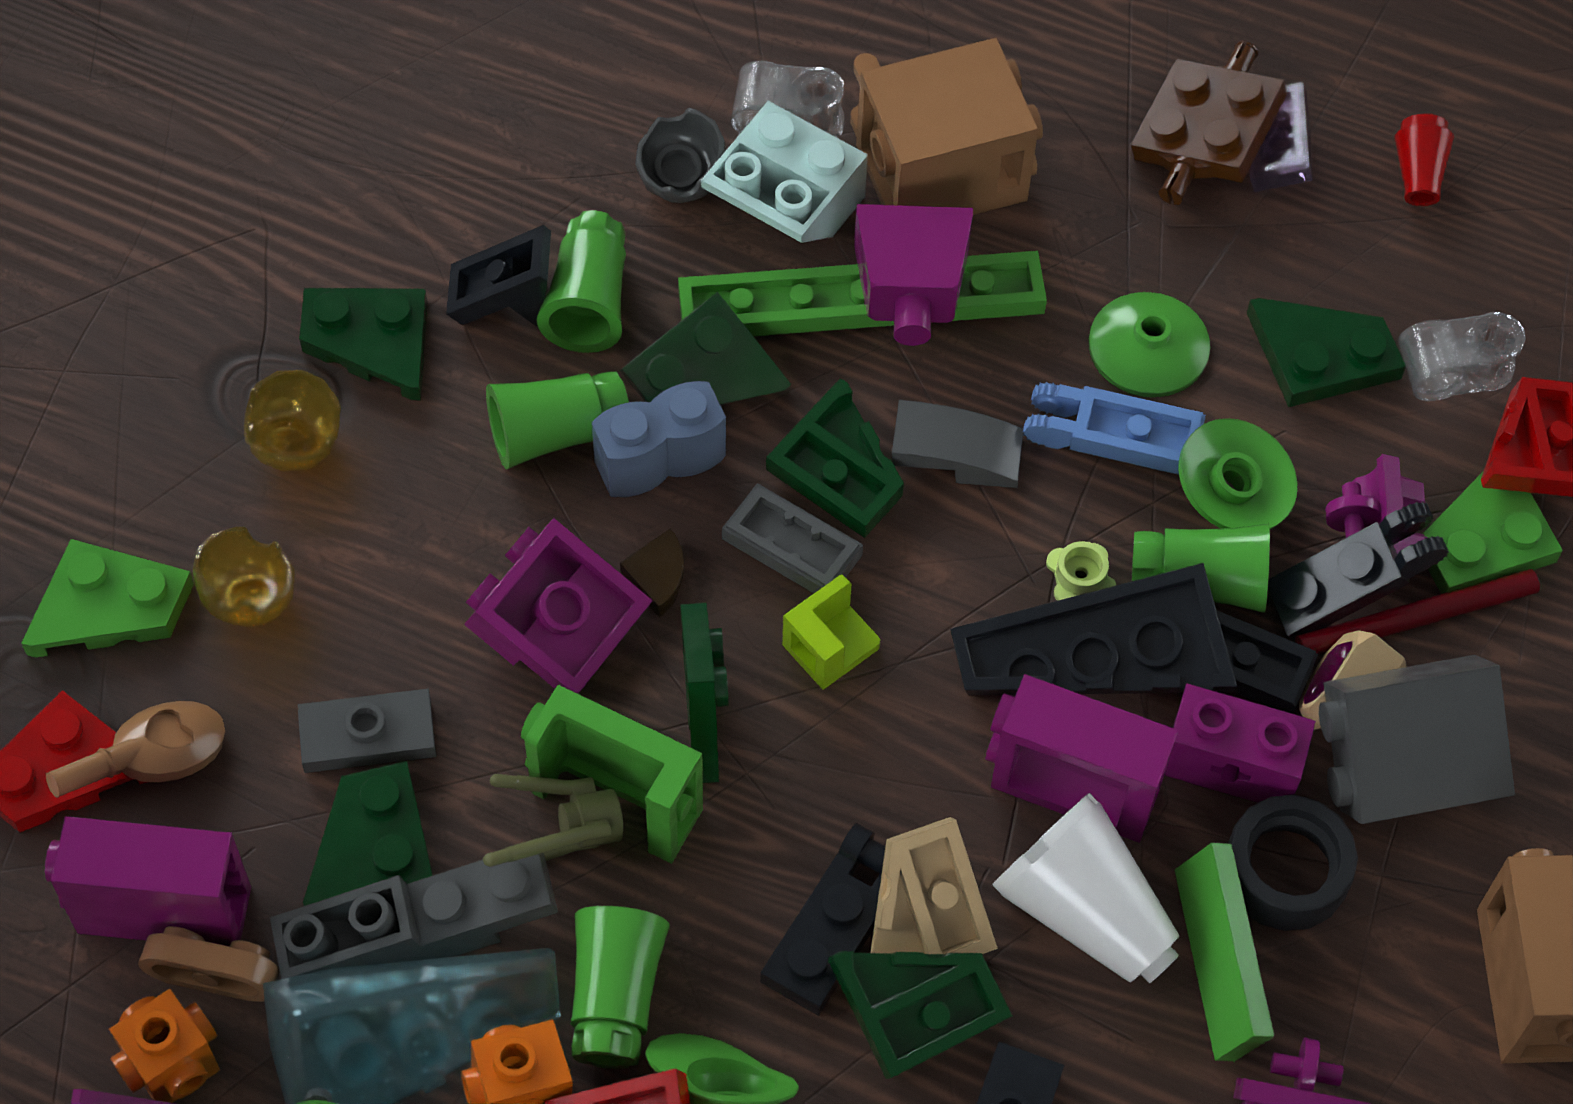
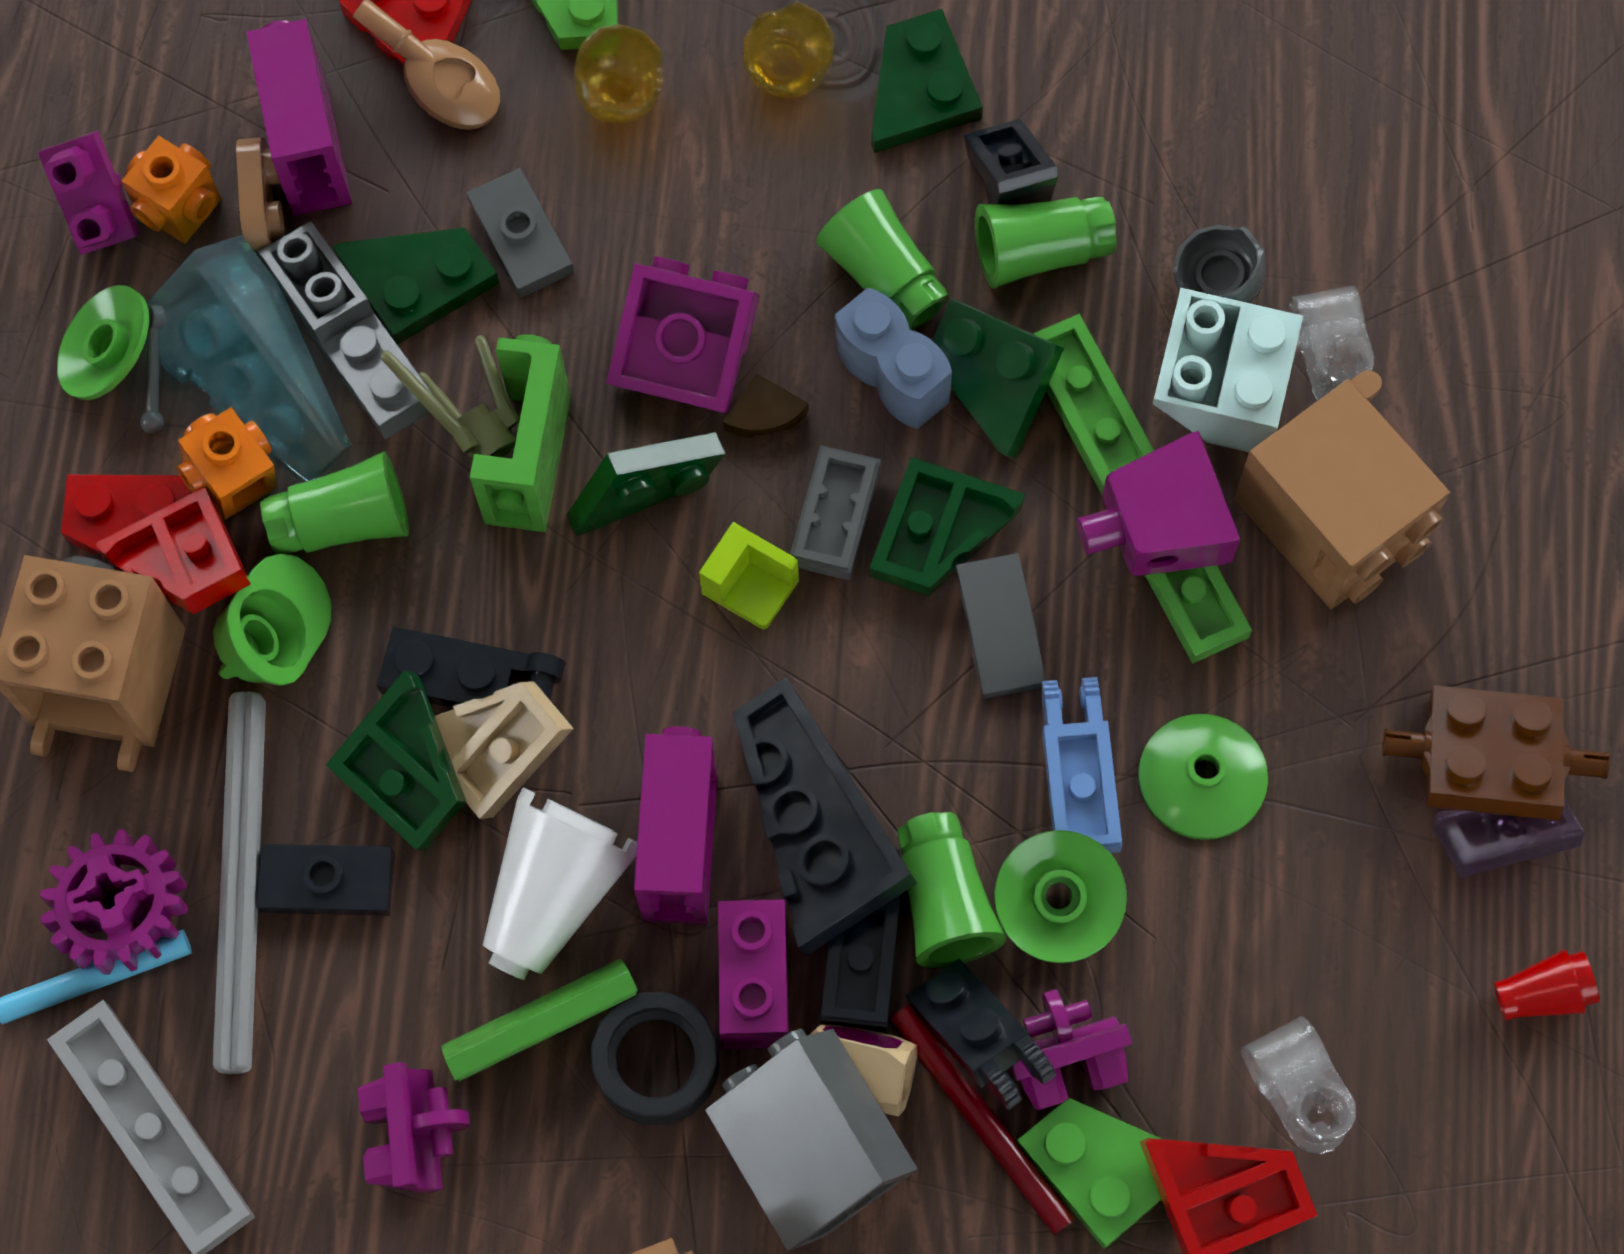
camera: 75 degrees right, 10 degrees up
(1079, 557) = (909, 765): yellowish green plate -> none
(1323, 349) = (1262, 948): dark green wing -> none

